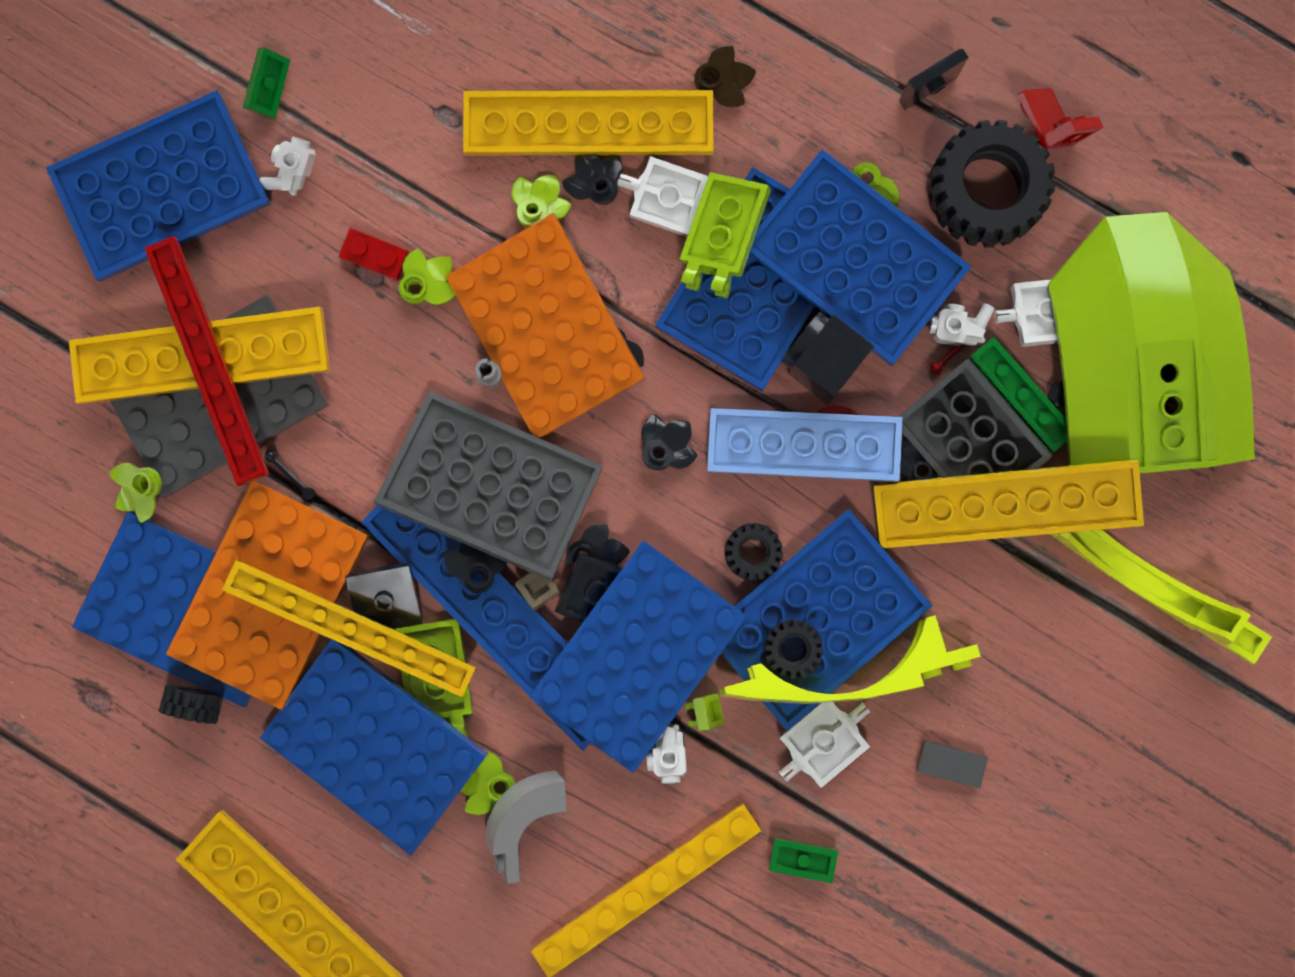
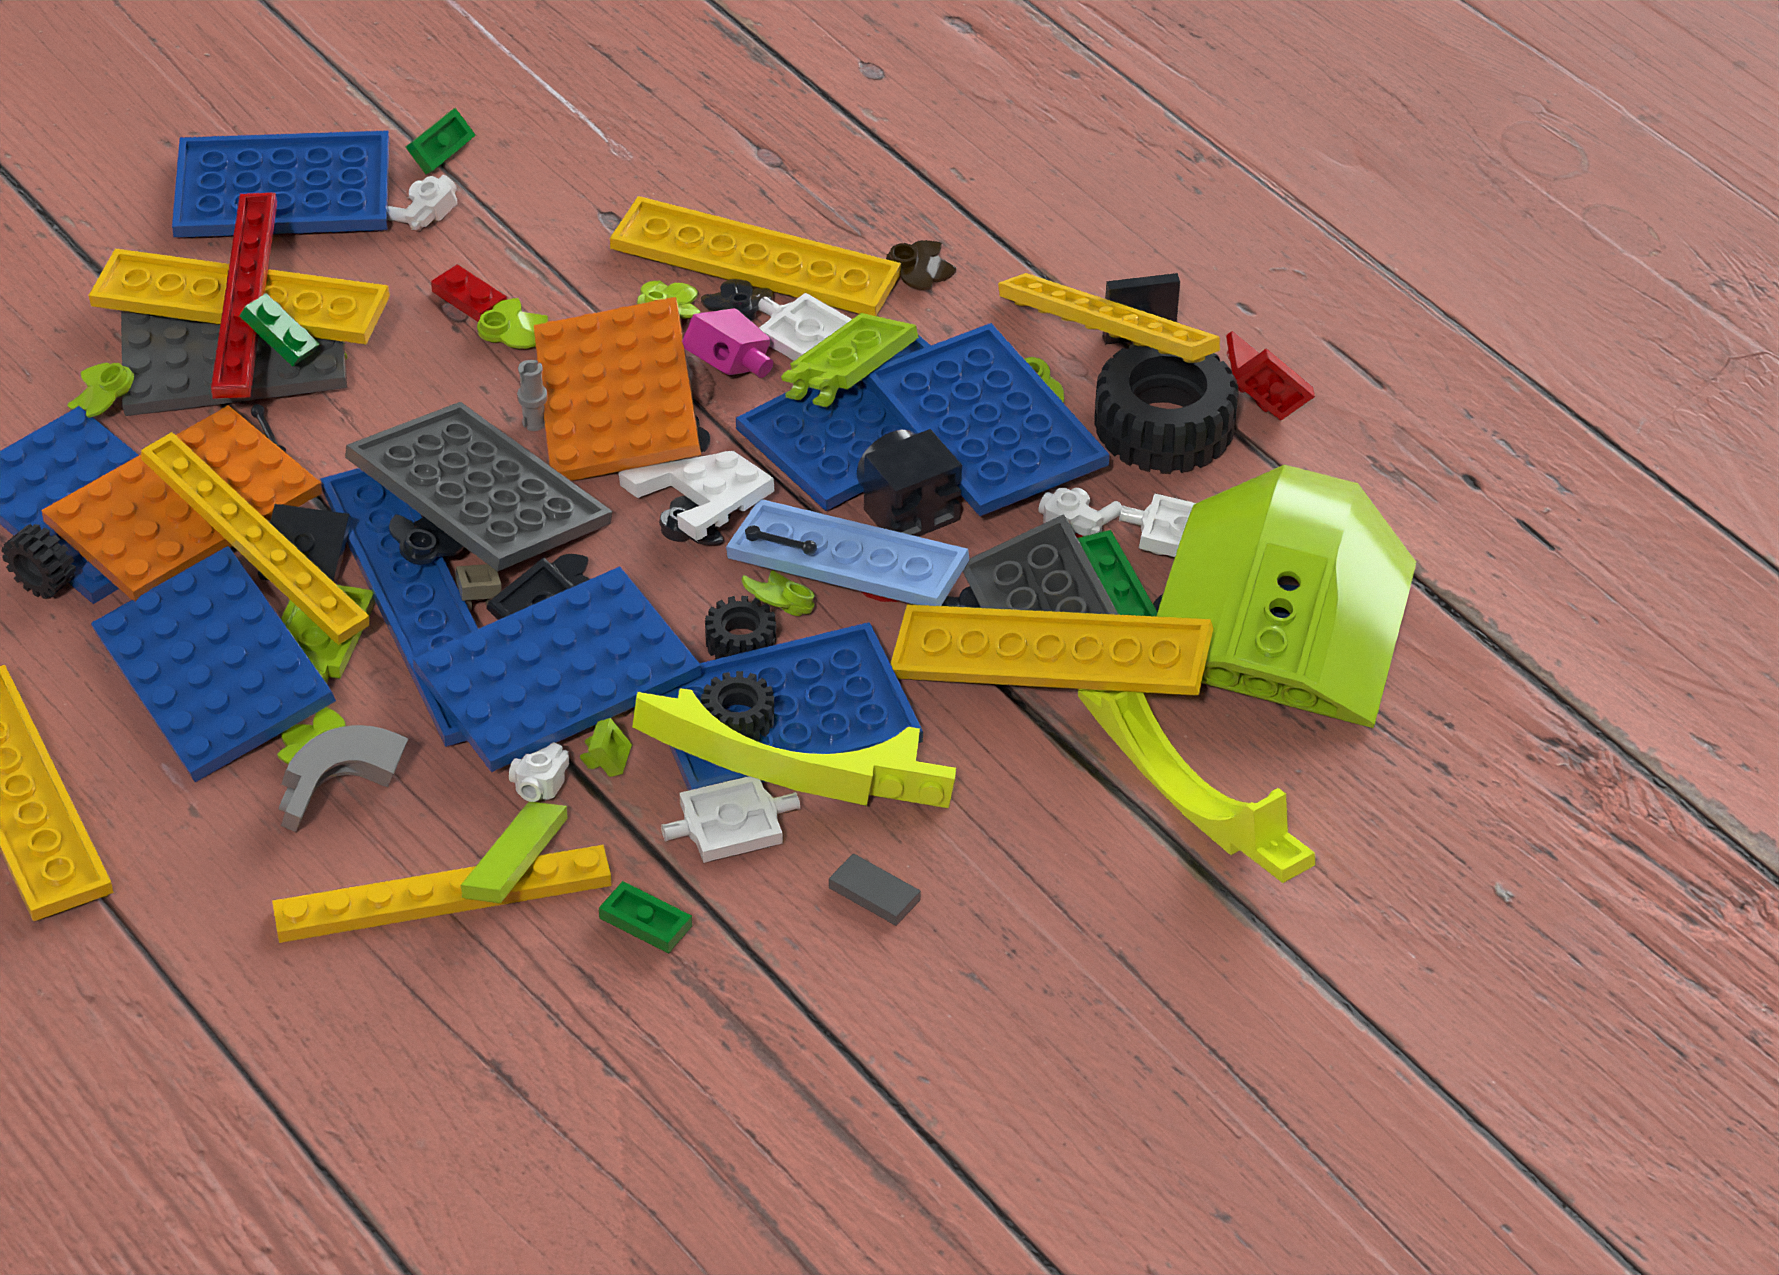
camera: 20 degrees right, 40 degrees down
(257, 395) = (279, 329): none -> green plate
(618, 246) = (728, 342): none -> dark pink torso
(672, 402) = (712, 481): none -> white wing
(688, 849) = (514, 852): none -> lime tile
(724, 453) = (753, 533): none -> black hinge
(764, 499) = (781, 593): none -> lime plate
(923, 117) = (1110, 317): none -> yellow plate

